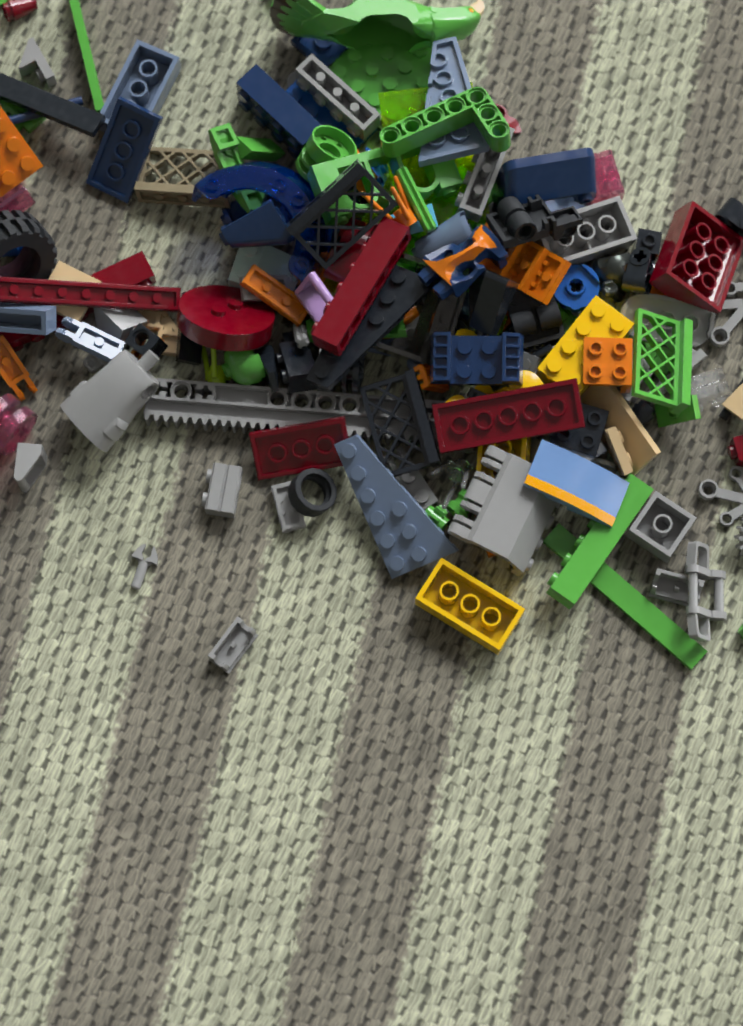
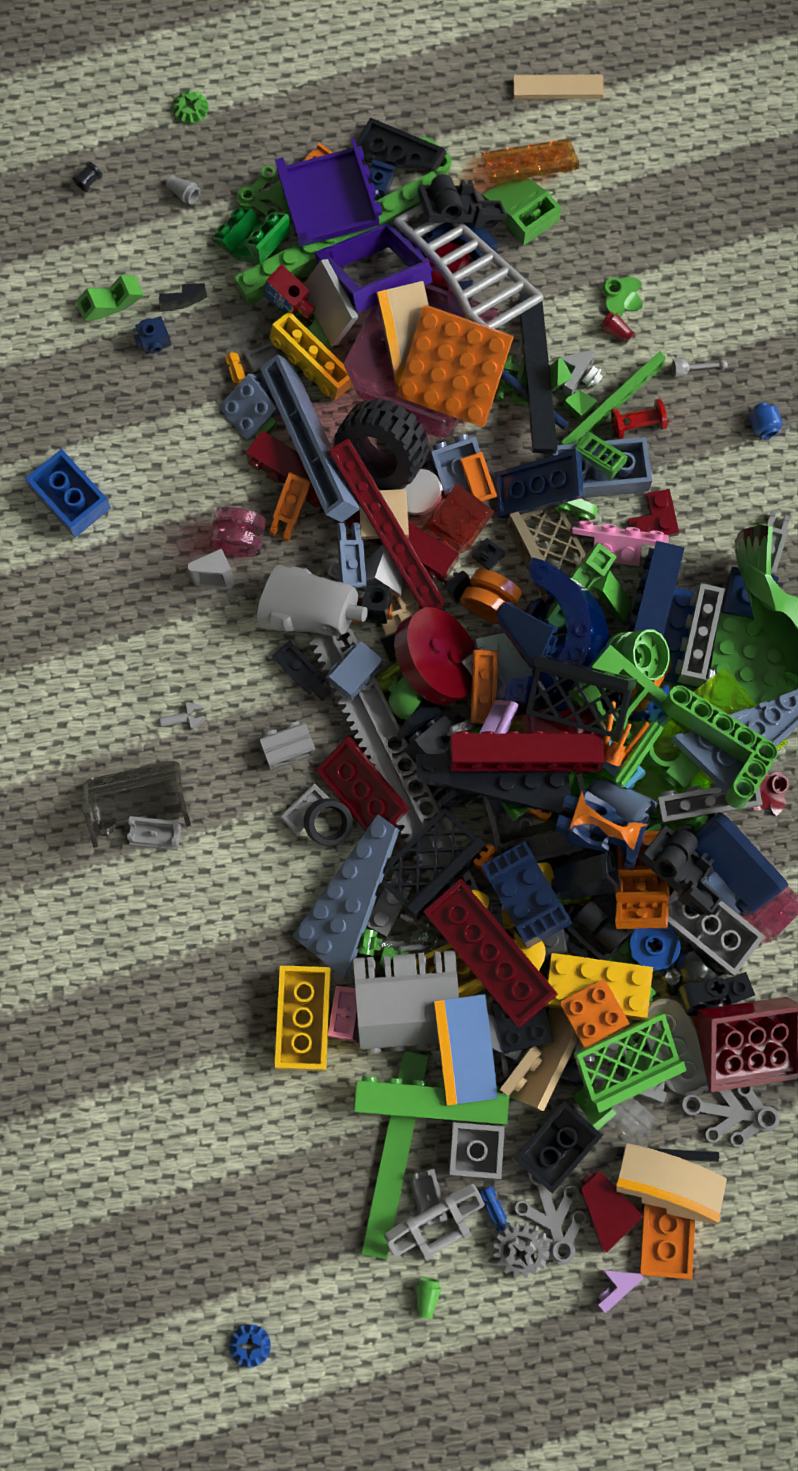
camera: 60 degrees right, 0 degrees up
(35, 75) = (559, 374): none -> bright green slope
(51, 53) = (592, 377): none -> white plate
(61, 206) = (446, 460): none -> sand blue plate
(68, 78) = (579, 404): none -> bright green slope
(70, 249) = (423, 493): none -> white tile
(83, 198) = (477, 476): none -> orange tile
(110, 233) = (459, 518): none -> clear red brick
(119, 22) = (639, 418): none -> red hose
(141, 88) = (618, 456): none -> bright green slope
(155, 230) = (488, 554): none -> black tile
(162, 442) = (301, 670): none -> black hinge
(167, 130) = (580, 508): none -> bright green plate
(170, 269) = (457, 585): none -> black tile
(189, 640) = (134, 794): none -> clear smoke windscreen
(196, 393) = (355, 670): none -> sand blue brick
(197, 246) = (488, 593): none -> orange wheel
(214, 76) = (661, 516): none -> dark red plate
(216, 112) = (623, 543): none -> bright pink bracket
(485, 569) = (344, 1015): none -> bright pink hinge
(694, 458) = (559, 1146): none -> black slope
(717, 541) = (494, 1208): none -> blue axle
(718, 814) = (241, 1336): none -> blue gear

